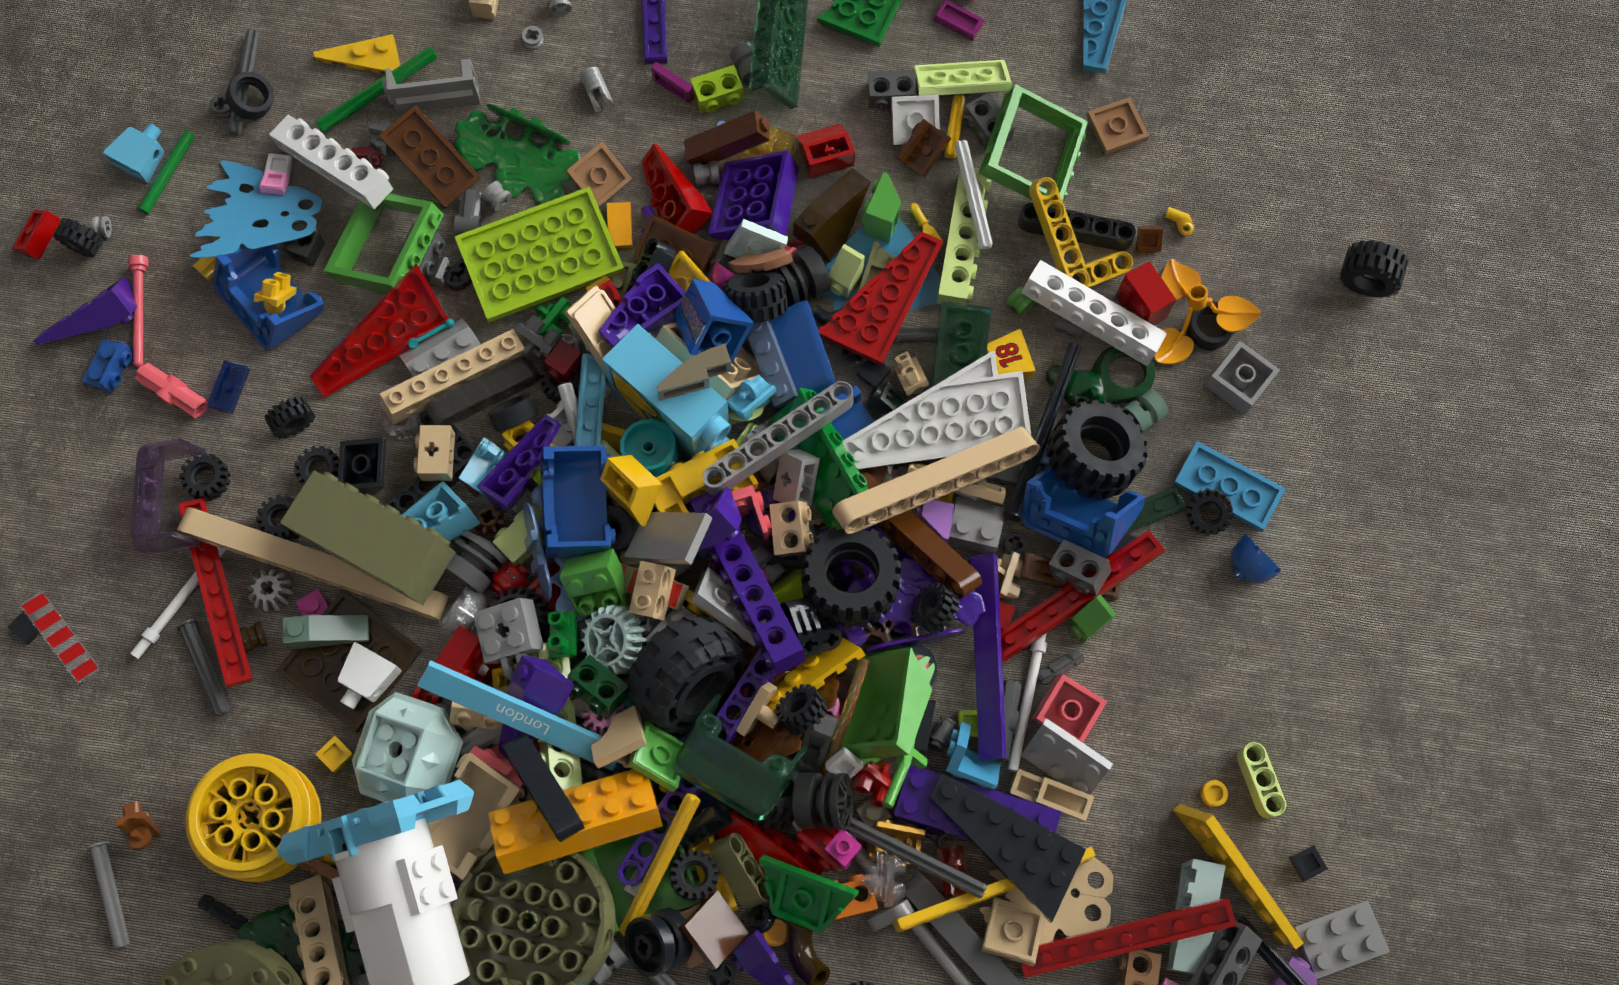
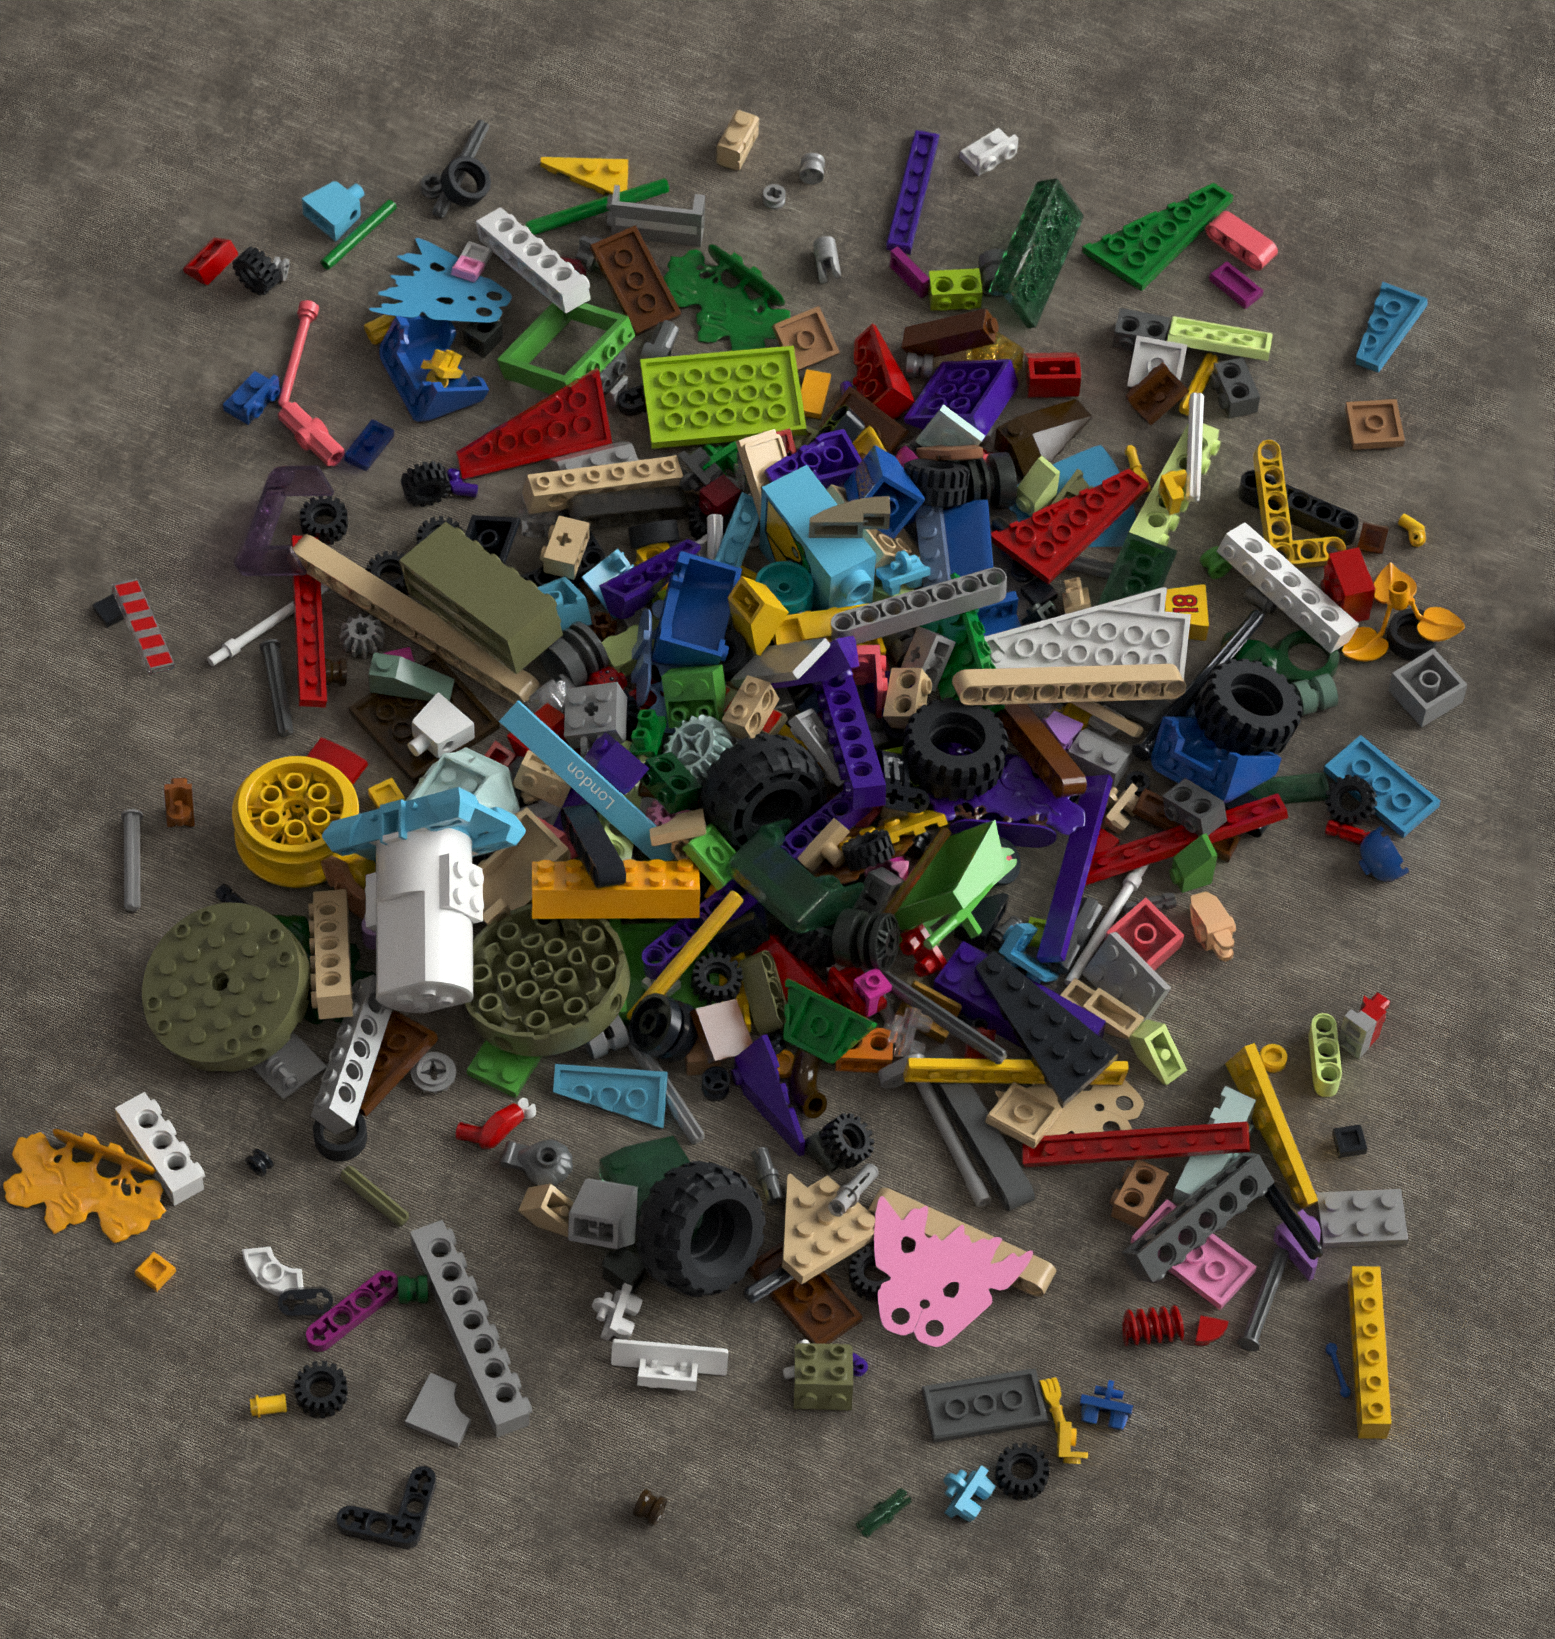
camera: 15 degrees right, 15 degrees down
(105, 310) = (264, 343): dark purple wedge -> none
(279, 730) = (341, 758): none -> red slope
(322, 407) = (460, 488): none -> dark purple arm
(413, 343) = (569, 449): teal hinge -> none
(496, 196) = (693, 335): light grey wheel -> none
(844, 762) = (903, 917): white plate -> none
(882, 211) = (1092, 441): bright green slope -> none
(935, 608) = (1031, 798): black tyre -> none
(965, 246) = (1171, 490): none -> yellow bracket
(1047, 111) = (1297, 388): bright green window -> none
(1113, 821) = (1157, 1051): none -> yellowish green slope
(1124, 674) = (1212, 925): none -> light nougat hinge
(1214, 541) = (1345, 831): none -> red axle
(1292, 742) = (1363, 1028): none -> light grey hips

